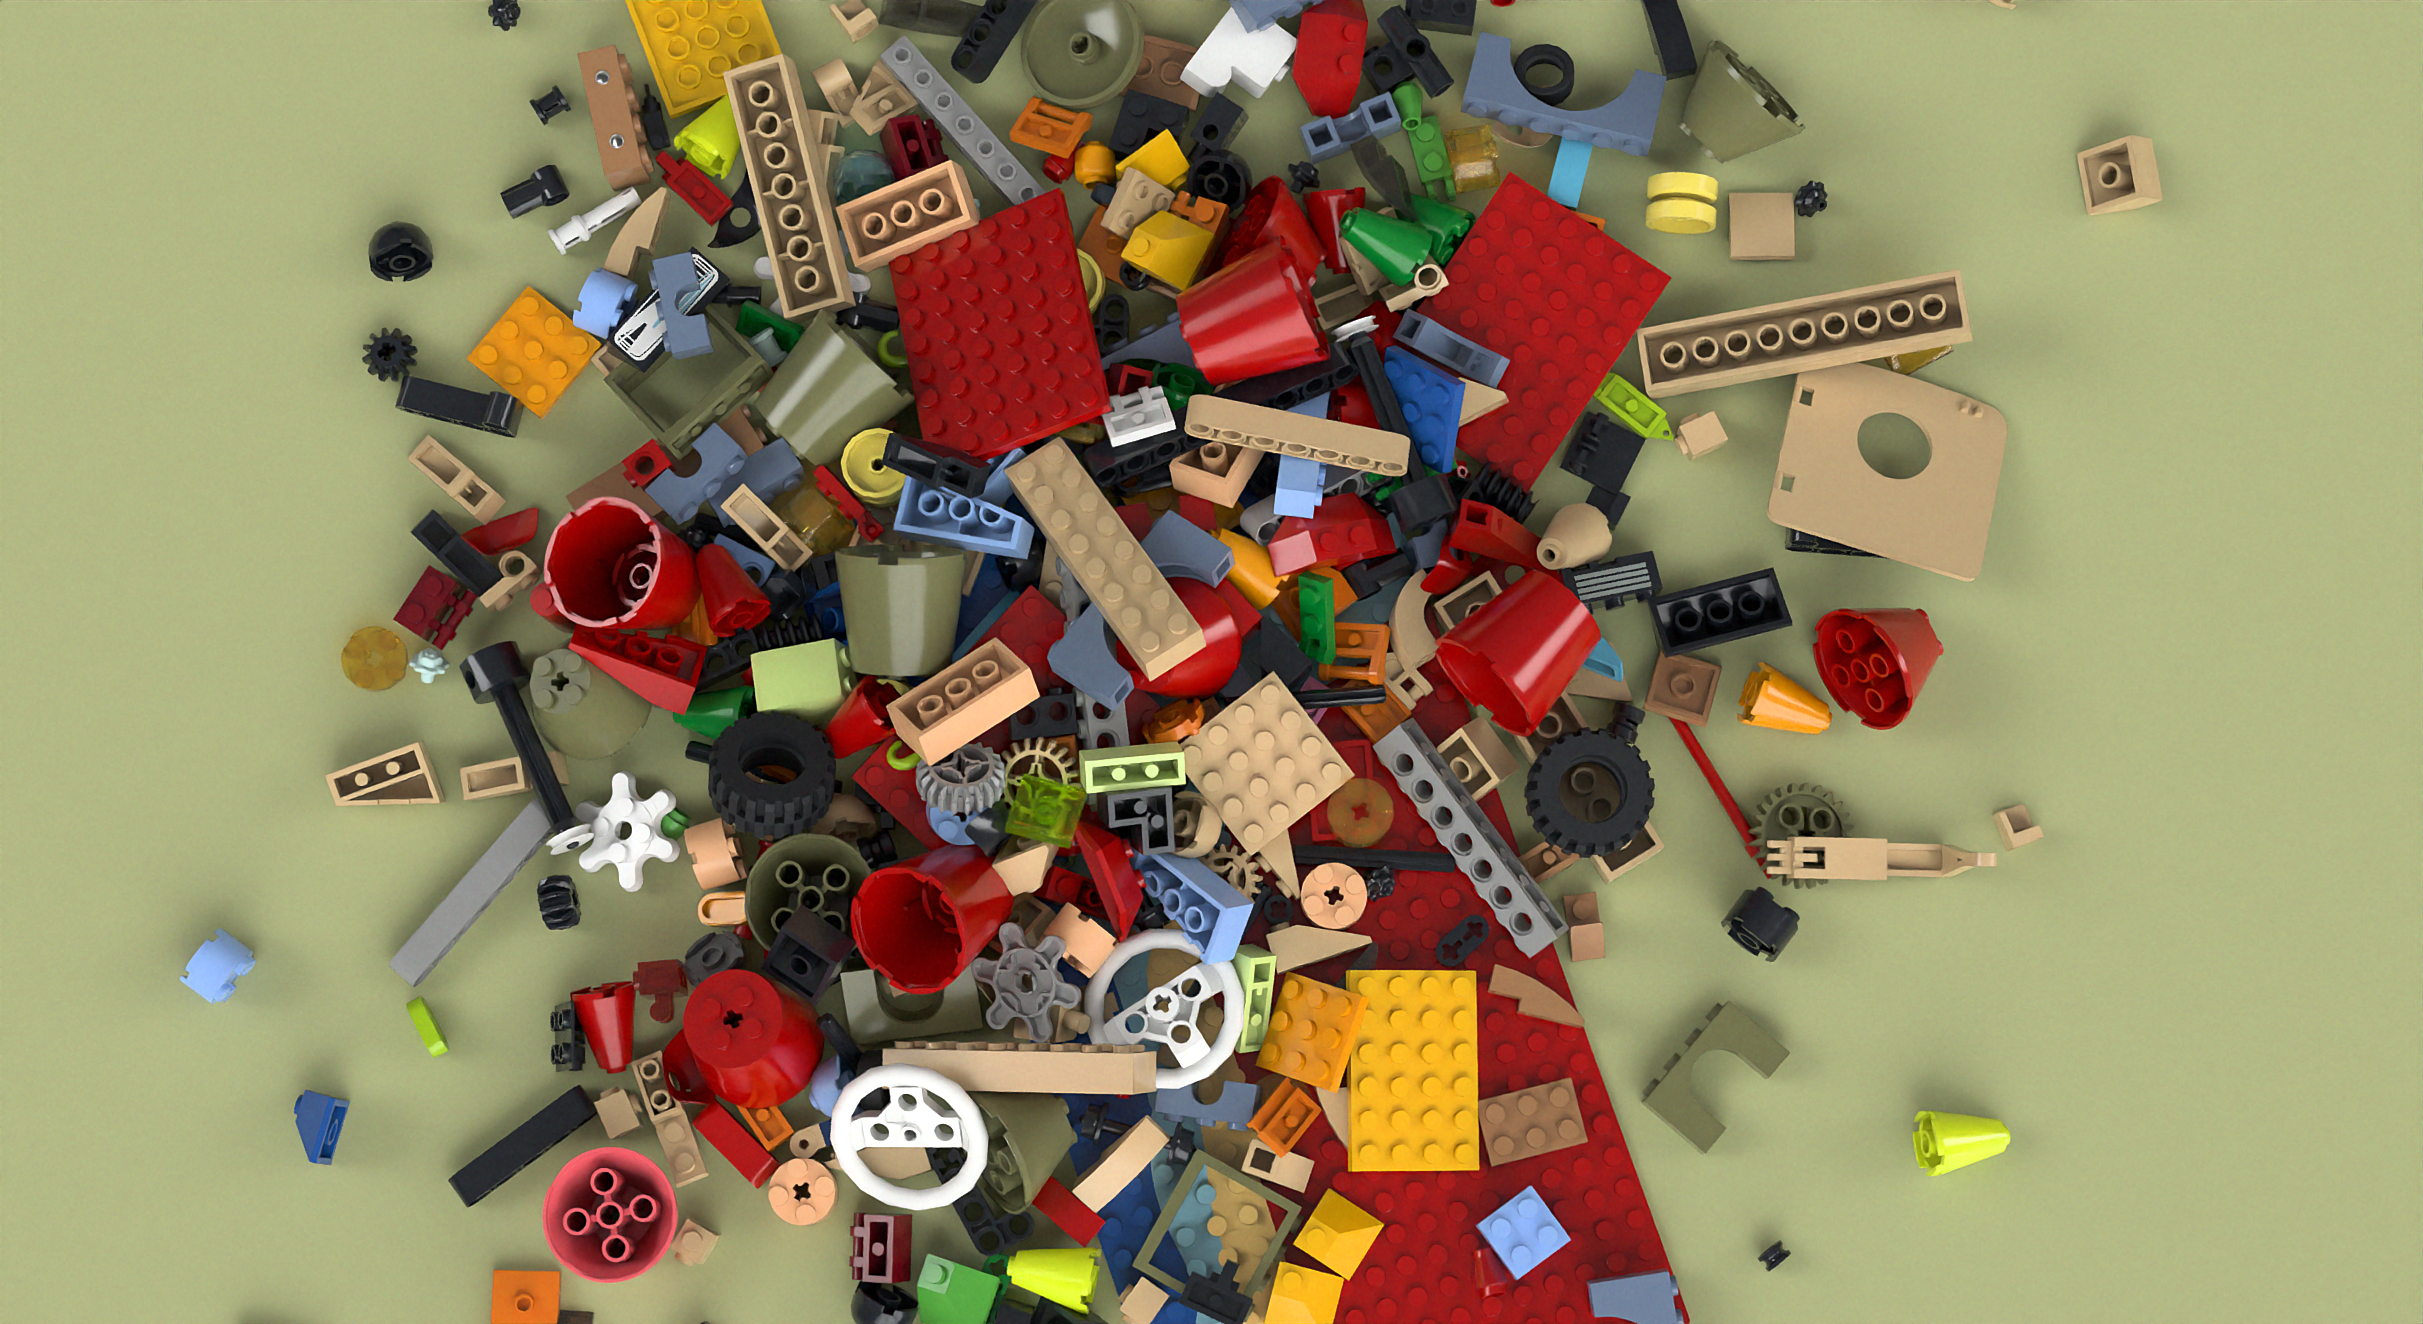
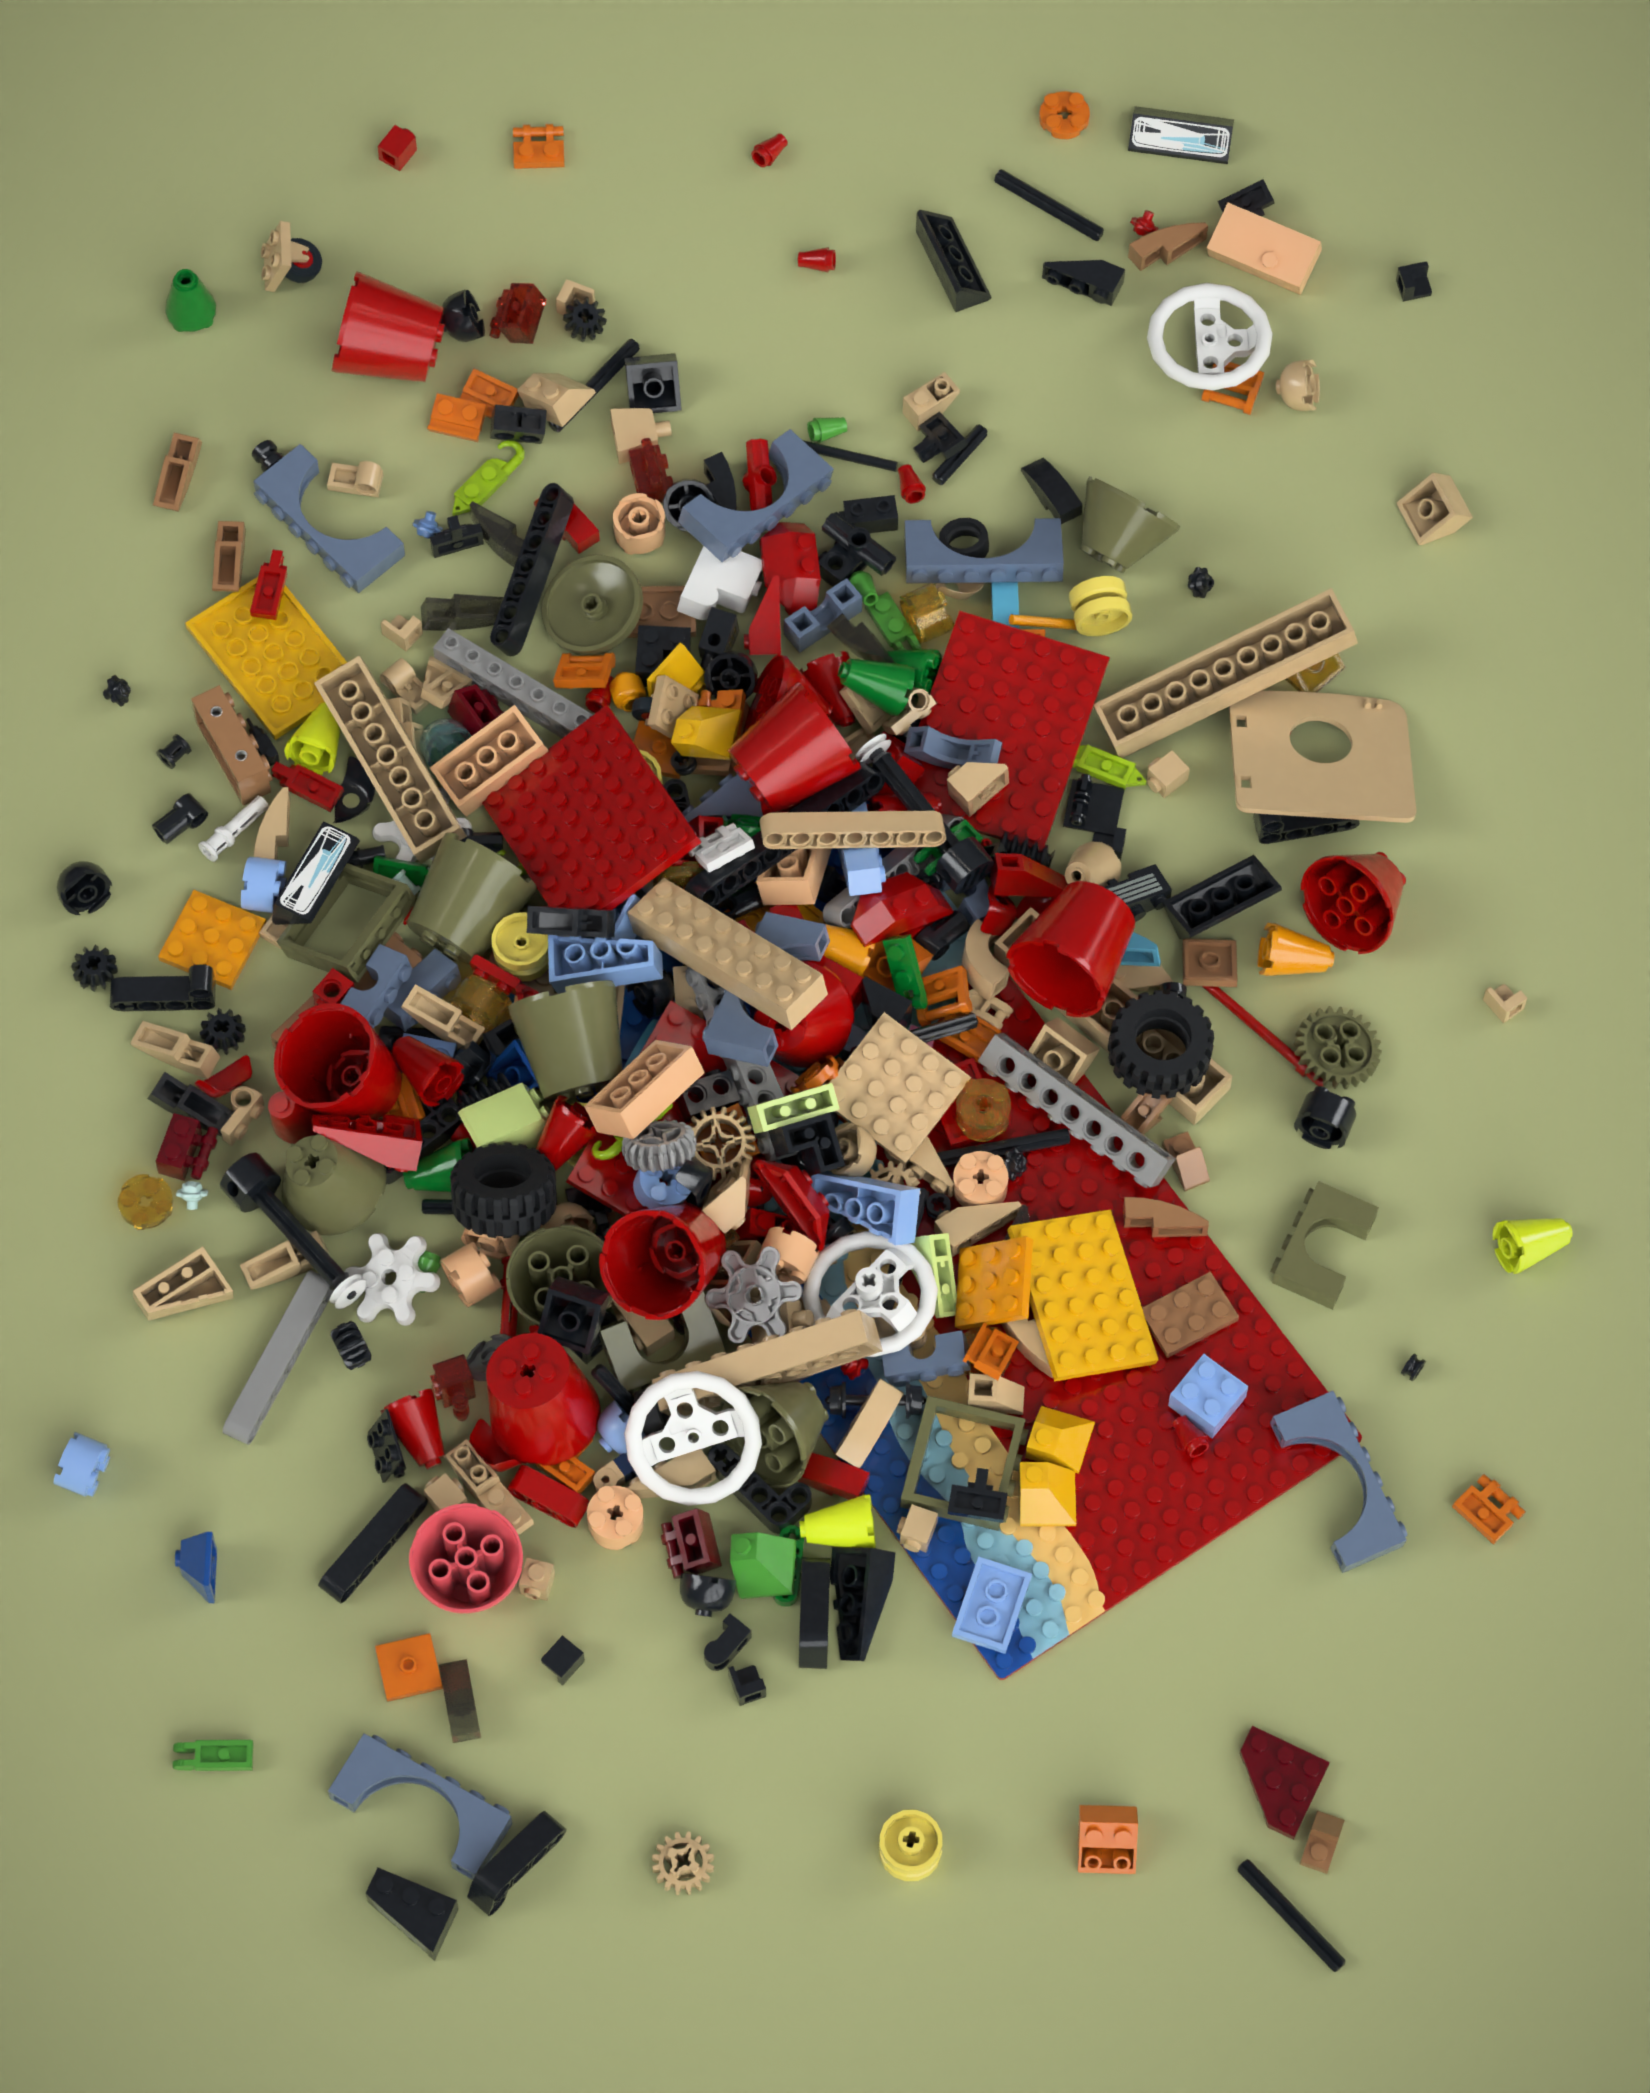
camera: 20 degrees left, 15 degrees down
(427, 1026) = (267, 1471): lime beam -> none
(527, 475) = (231, 1031): none -> black gear
(674, 278) = (338, 882): sand blue arch -> none
(723, 909) = (491, 1317): light orange tile -> none
(1046, 811) = (735, 1154): clear neon green plate -> none
(1276, 130) = (765, 630): none -> red slope
(1304, 175) = (798, 657): black plant -> none
(1429, 405) = (948, 788): blue plate -> none
(1467, 946) = (1087, 1189): black beam -> none
(1606, 204) = (1046, 622): none -> light orange bar
(1761, 226) = (1167, 611): tan slope -> none
(1871, 859) = (1397, 1047): tan hinge -> none

